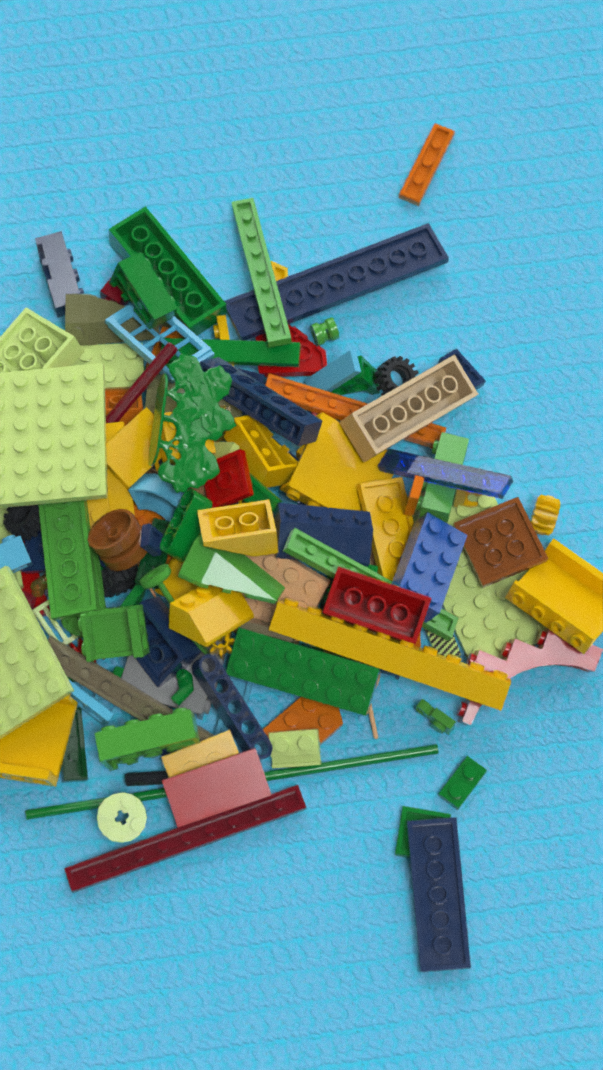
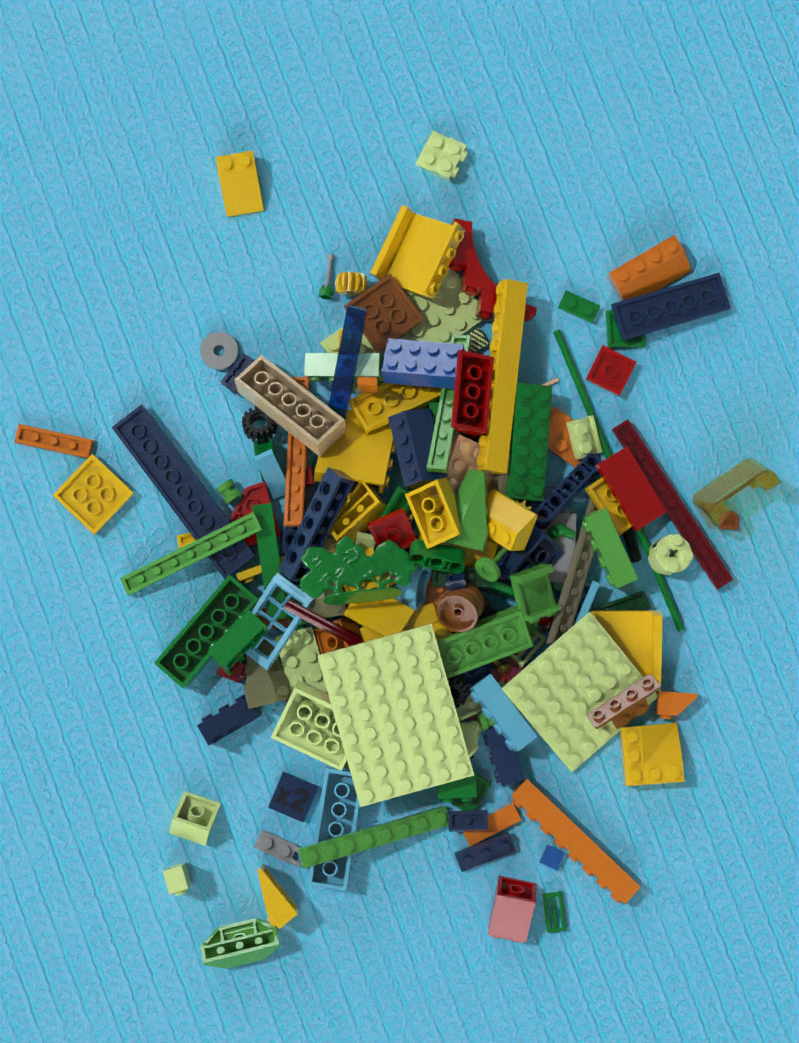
camera: 100 degrees left, 15 degrees up
(147, 907) = (731, 522): none -> dark orange tile
(201, 941) = (711, 498): none -> clear yellow windscreen
(355, 190) = (93, 494): none -> yellow plate
(372, 802) = (610, 370): none -> red plate
(439, 720) = (537, 332): bright green plate -> none
(491, 880) = (650, 270): none -> orange slope
(499, 345) = (219, 362): none -> light grey tile
(542, 487) = (326, 291): none -> hinge

